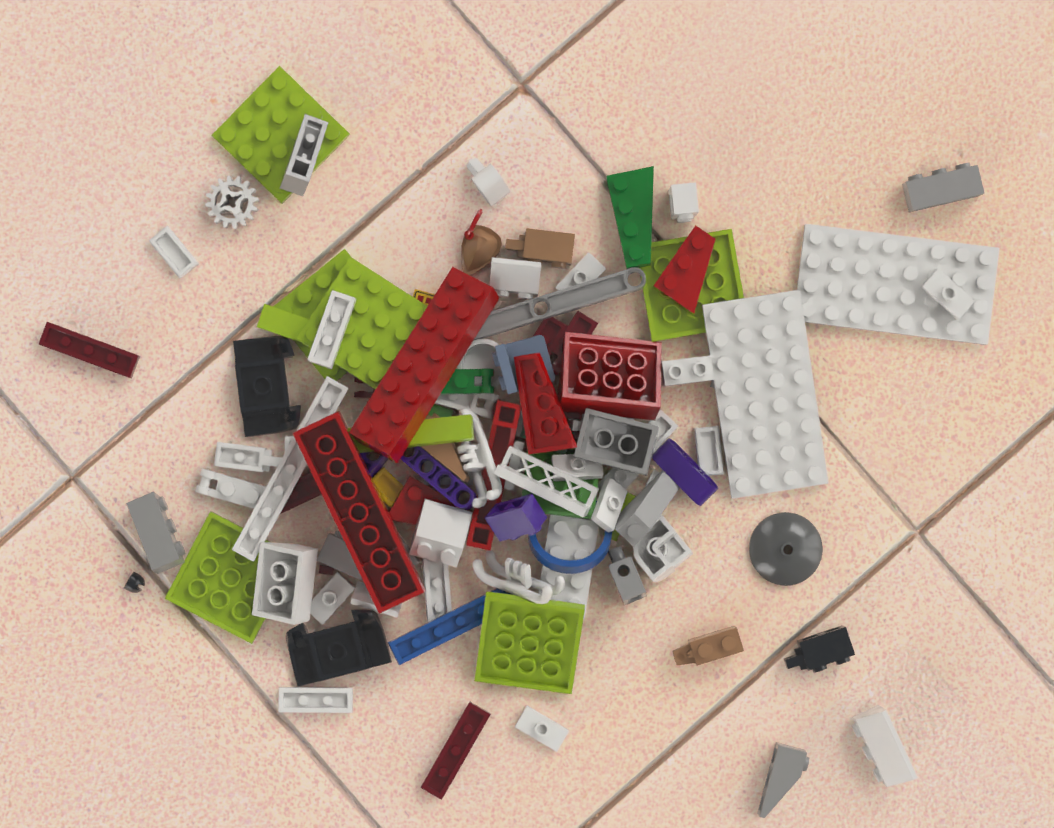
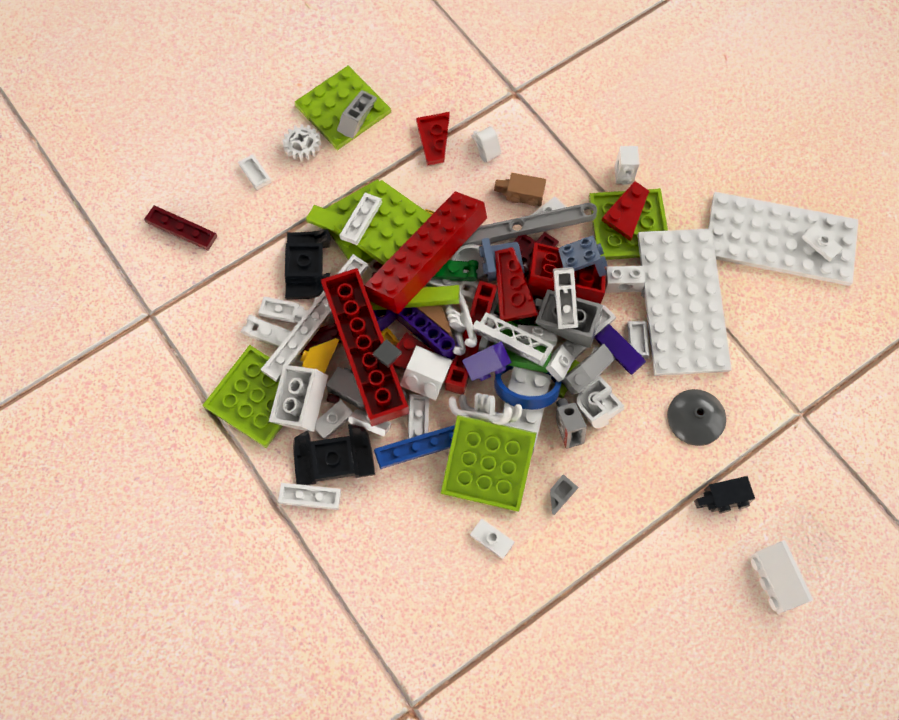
camera: 10 degrees right, 20 degrees down
(133, 581) = (180, 392): black hinge -> none
(156, 532) = (205, 354): light grey brick -> none
(302, 520) = (319, 355): none -> yellow slope
(390, 527) = (387, 353): none -> dark grey tile
(414, 173) = (433, 136): none -> red wing
(455, 750) = (419, 549): dark red plate -> none
(479, 246) = (476, 183): medium nougat piece -> none
(515, 277) = (501, 201): white slope -> none
(608, 425) = (565, 297): none -> white slope
(621, 664) = (561, 493): none -> light grey slope
(630, 353) = (583, 254): none -> sand blue bracket
(632, 207) = (588, 170): green wing -> none
(709, 647) = (635, 483): medium nougat hinge -> none
(783, 773) = (694, 591): light grey slope -> none
(942, 187) = (815, 176): light grey brick -> none

